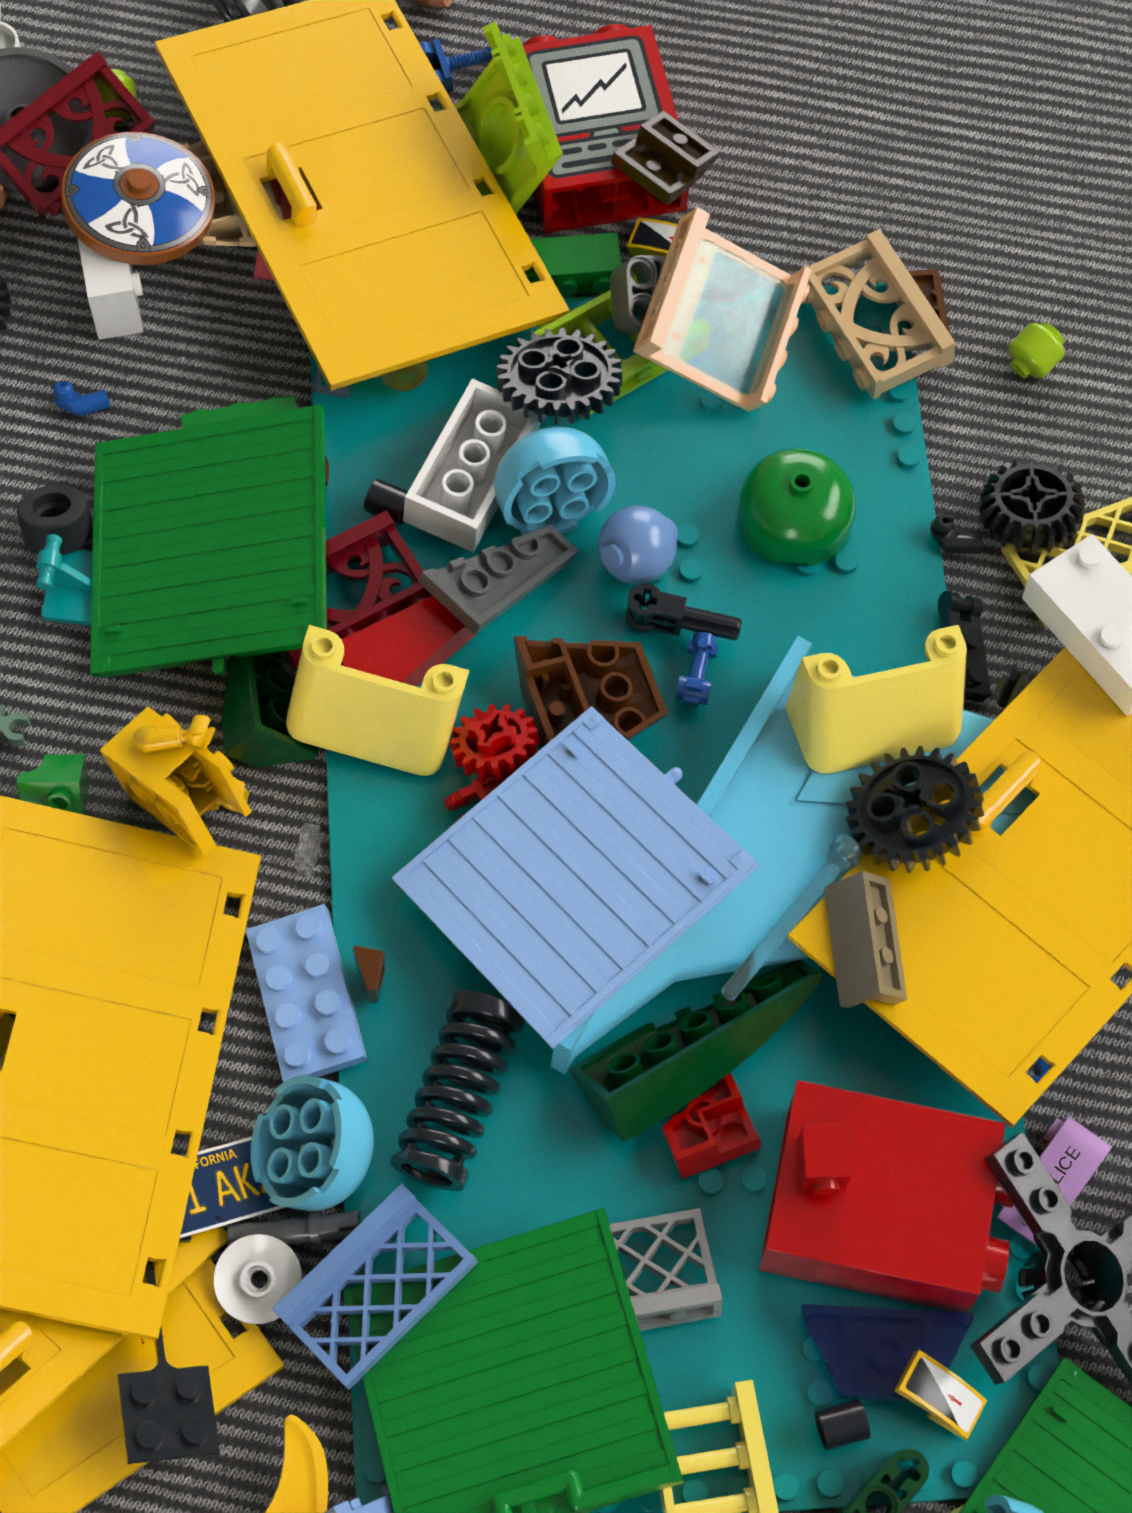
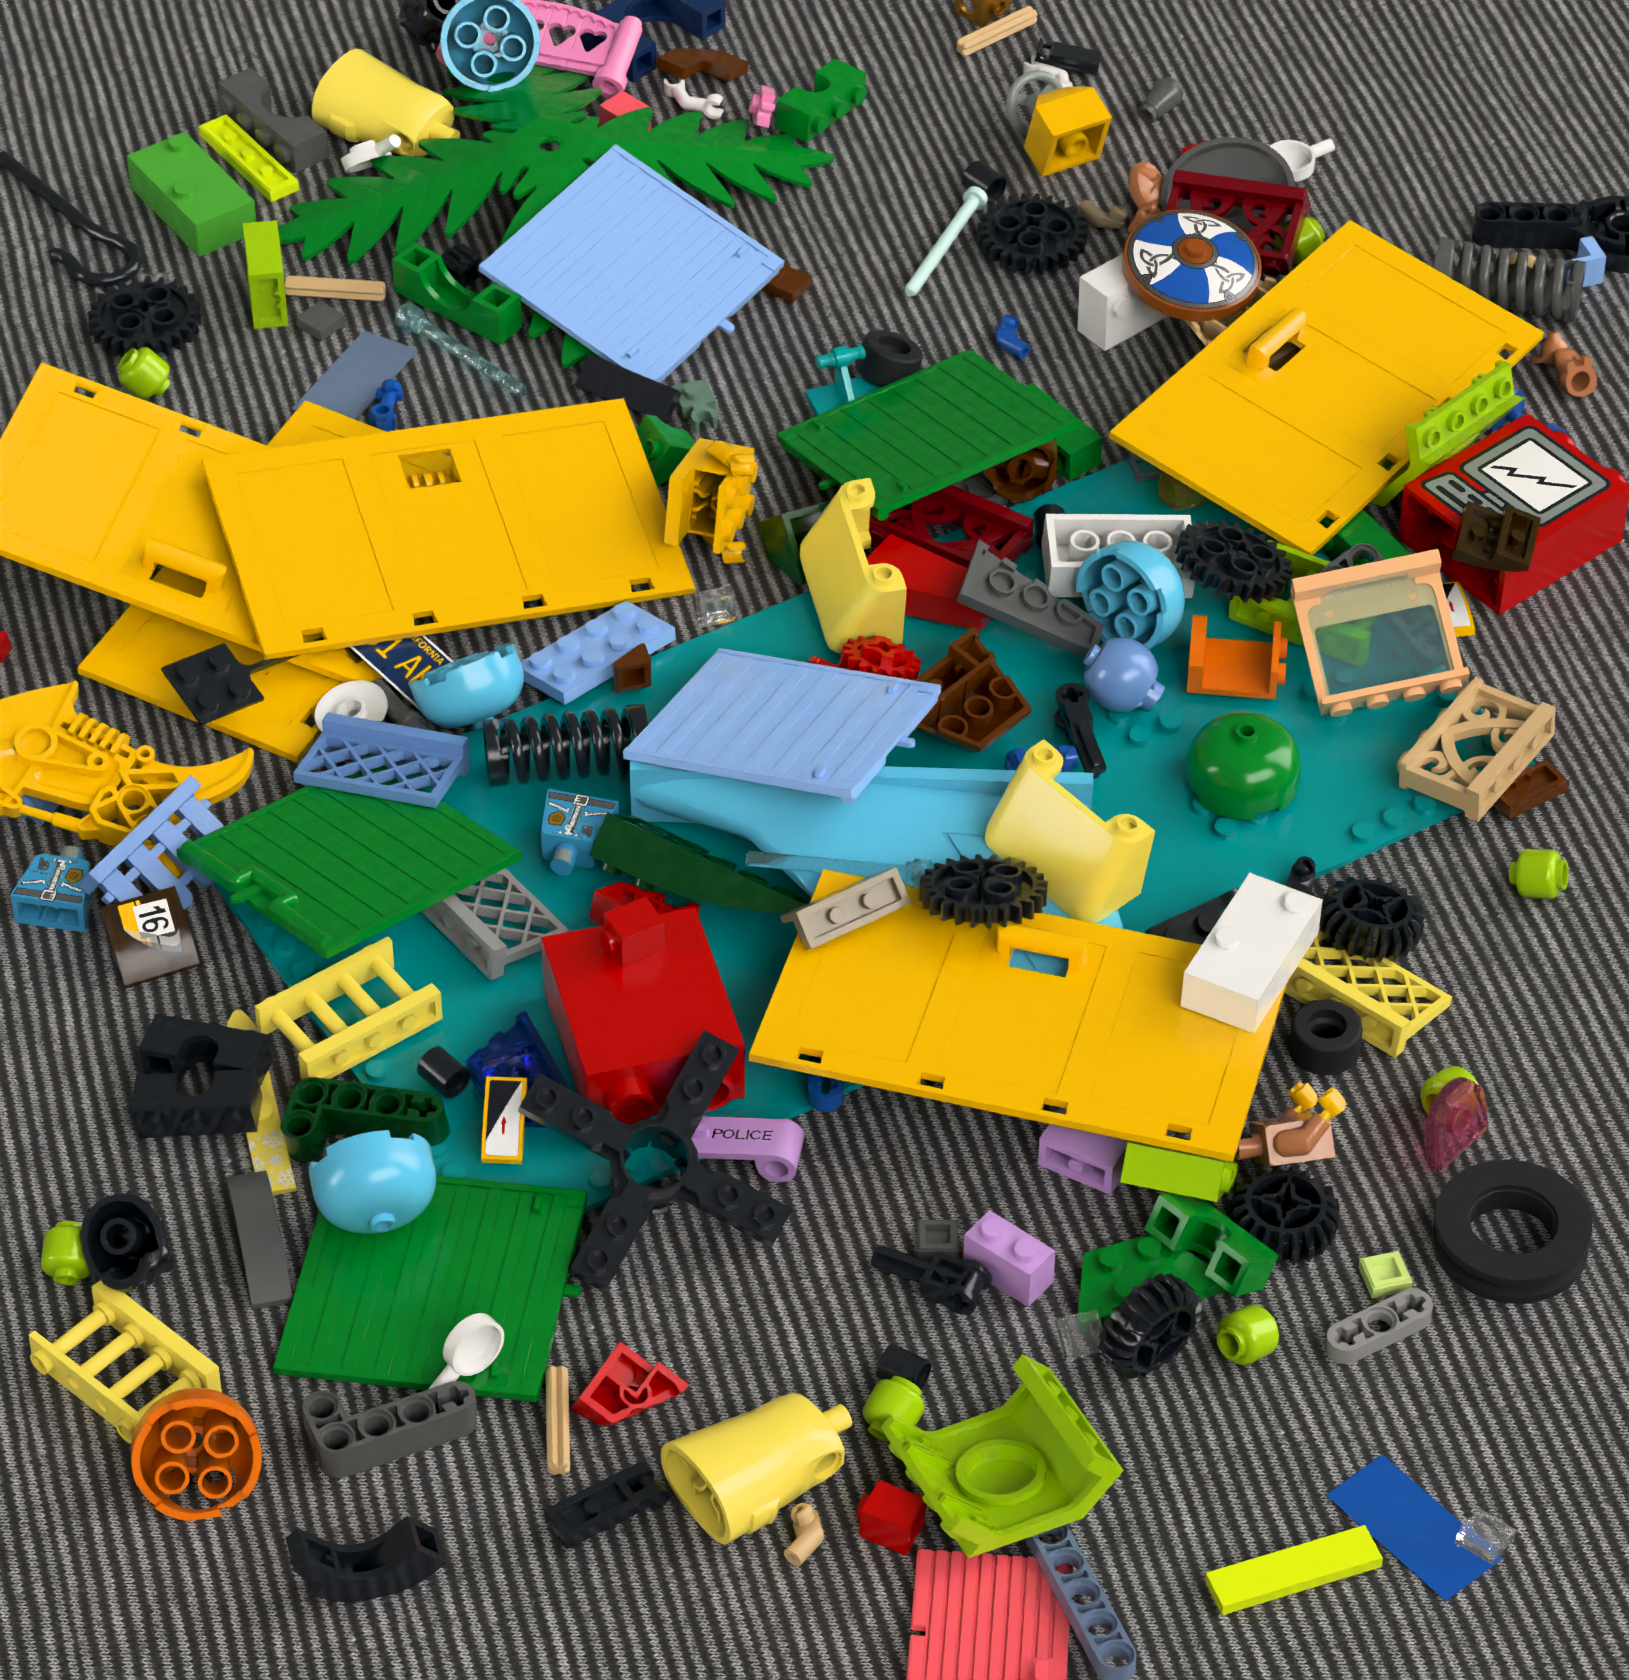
camera: 65 degrees right, 20 degrees down
(570, 1138) = (571, 829): none -> dark azure torso
(656, 441) = (1235, 666): none -> orange panel

